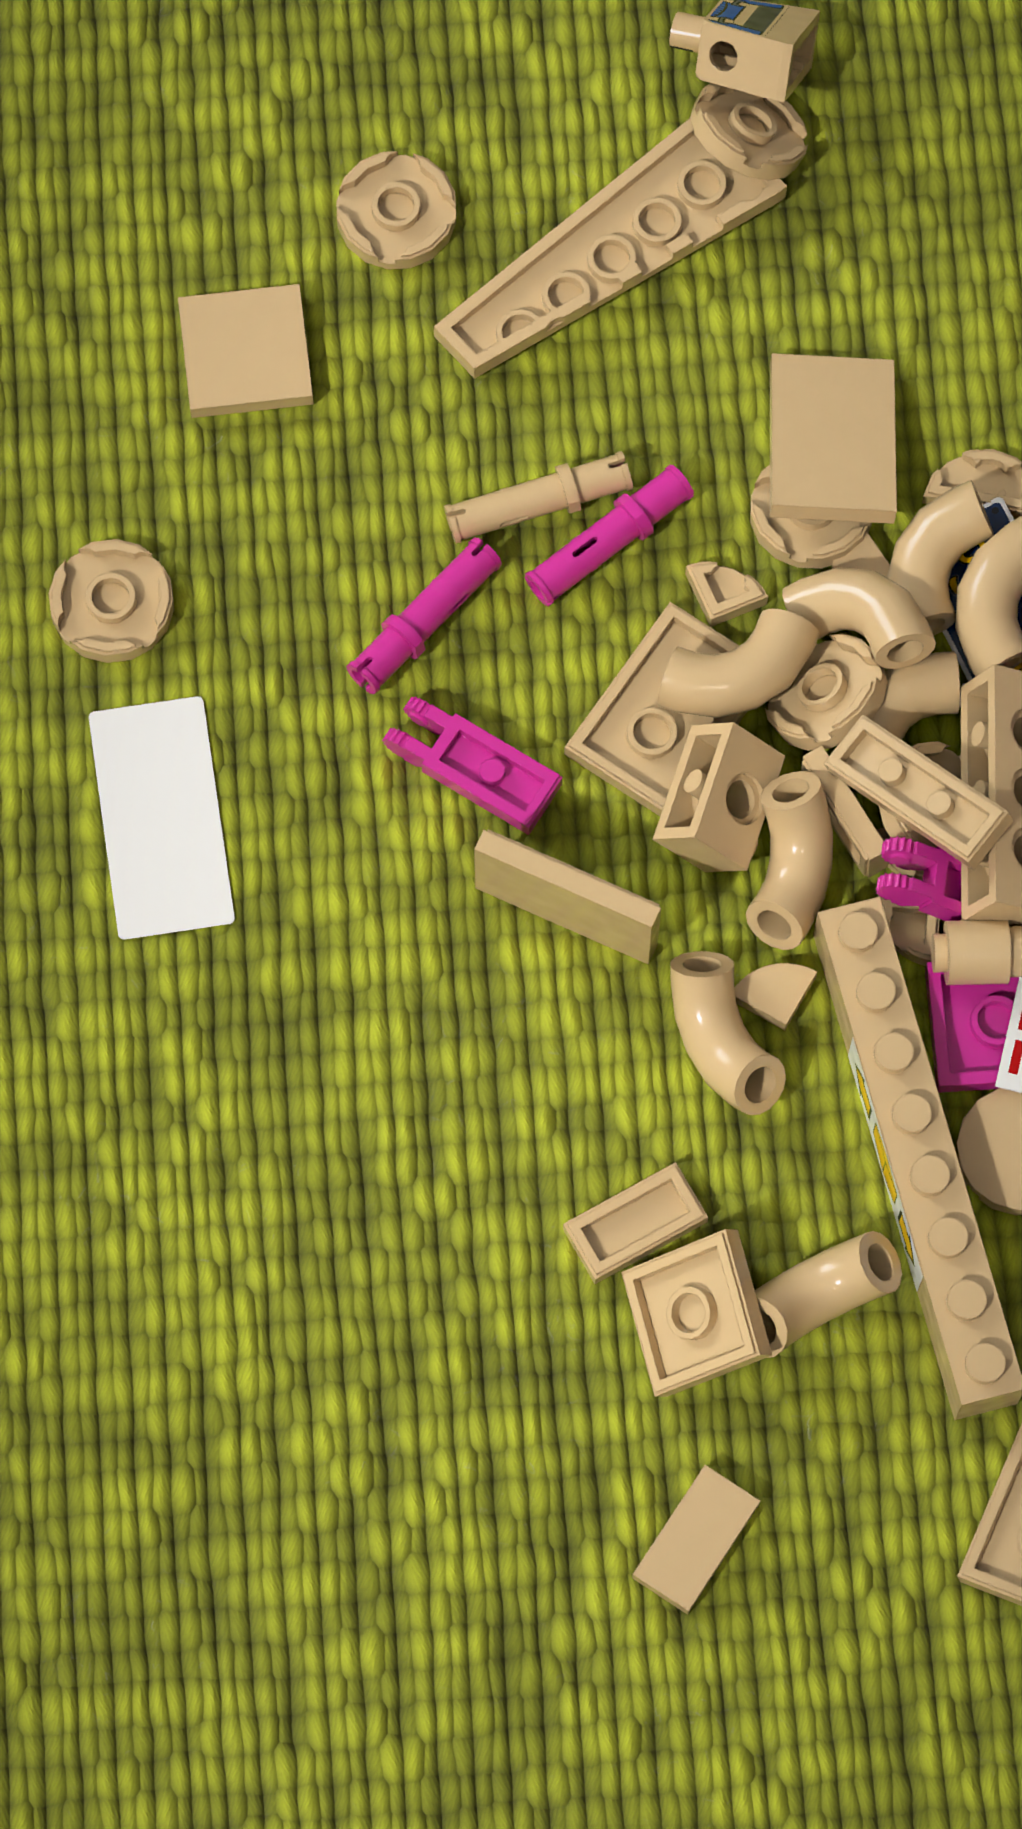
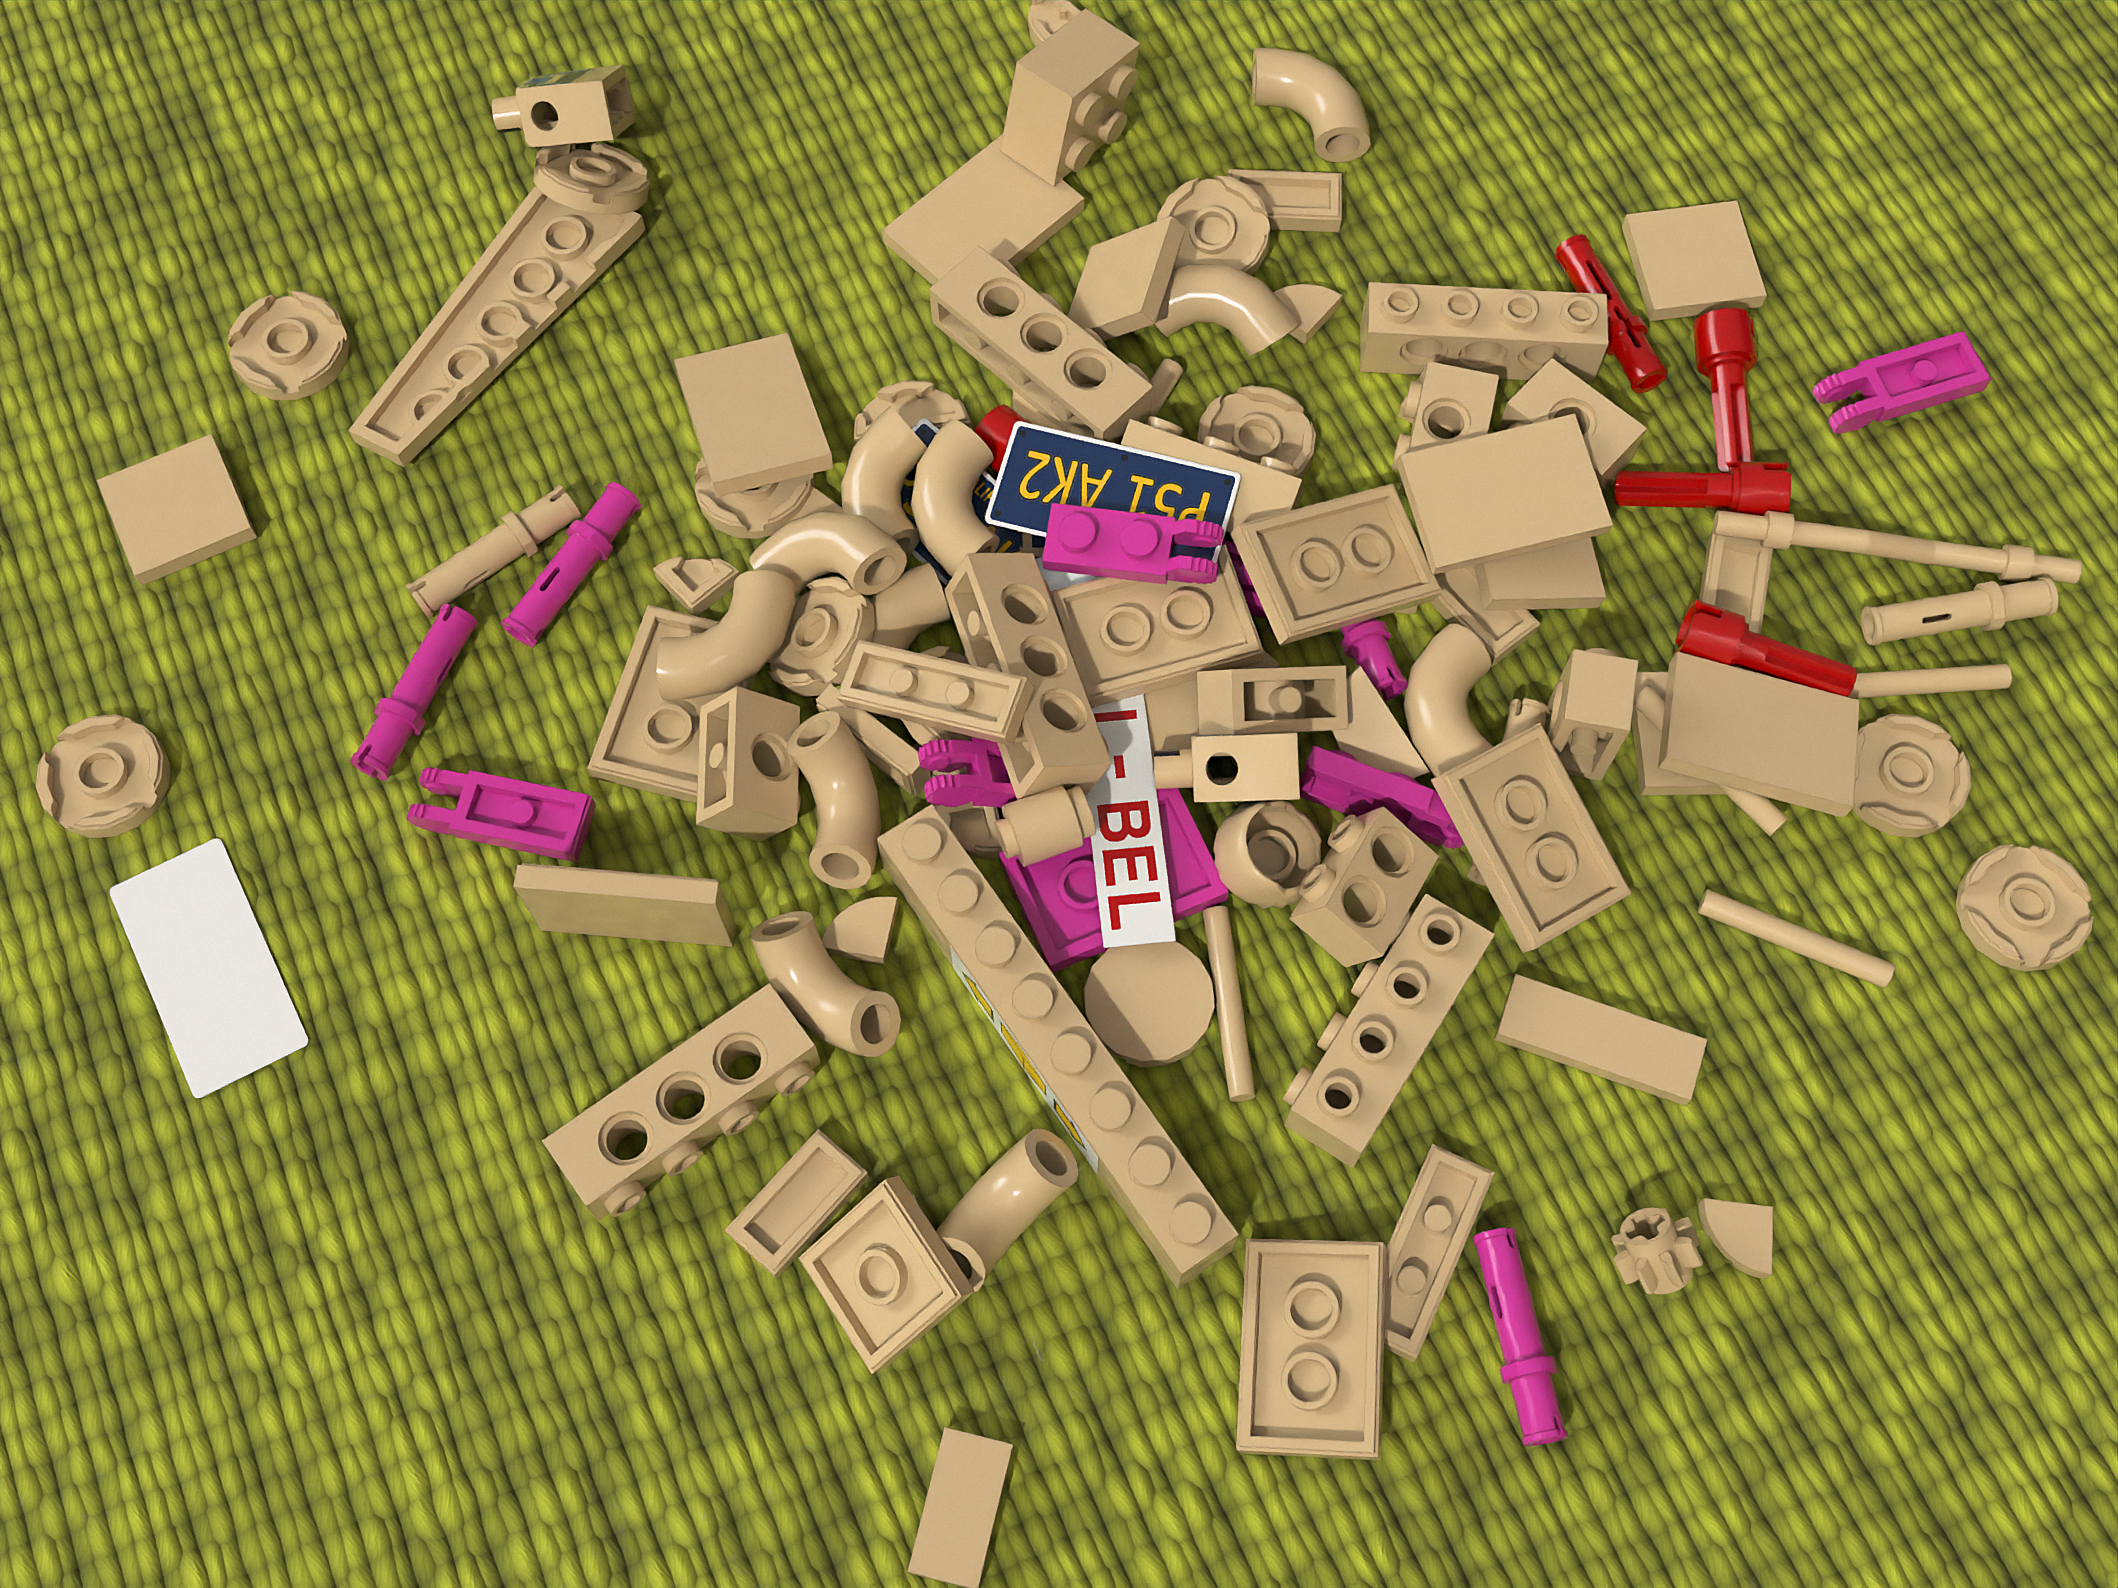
camera: 20 degrees left, 5 degrees down
(649, 1050) = (645, 1103): none -> tan brick

